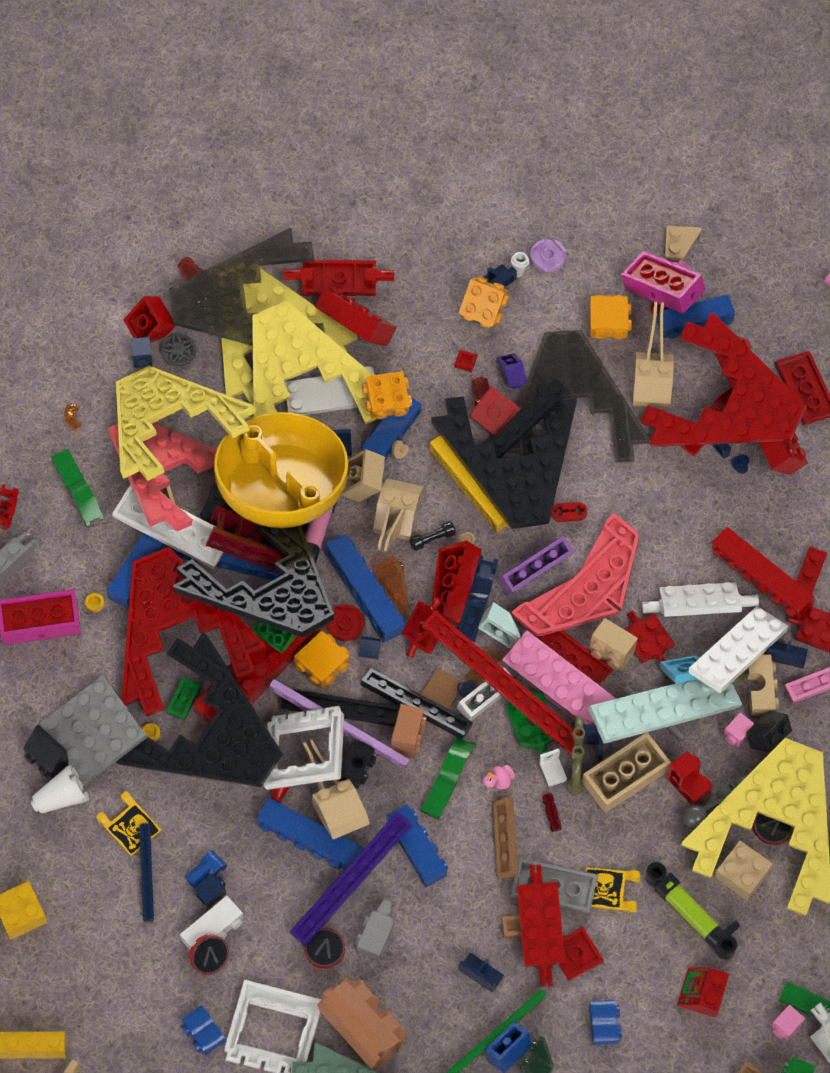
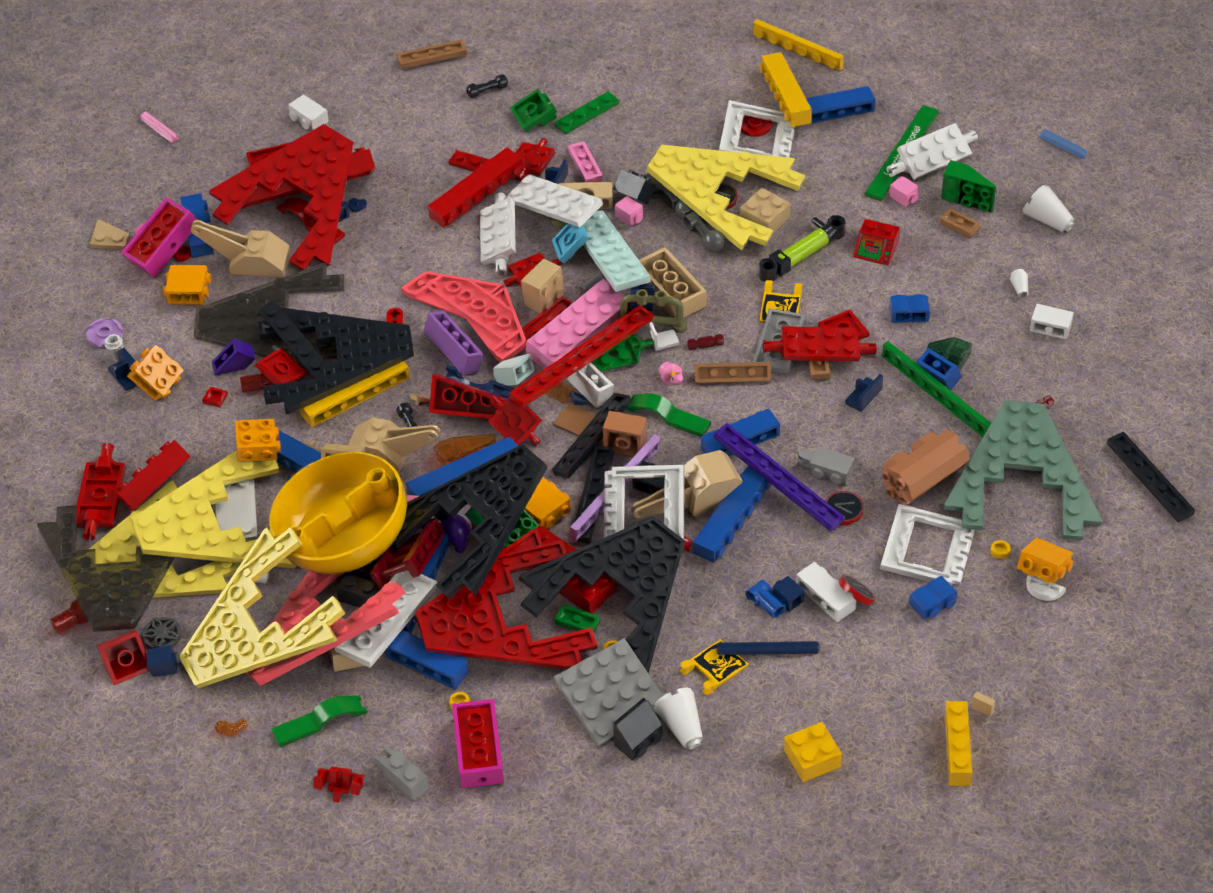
camera: 85 degrees left, 15 degrees down
(687, 780) = (678, 241): red brick -> none

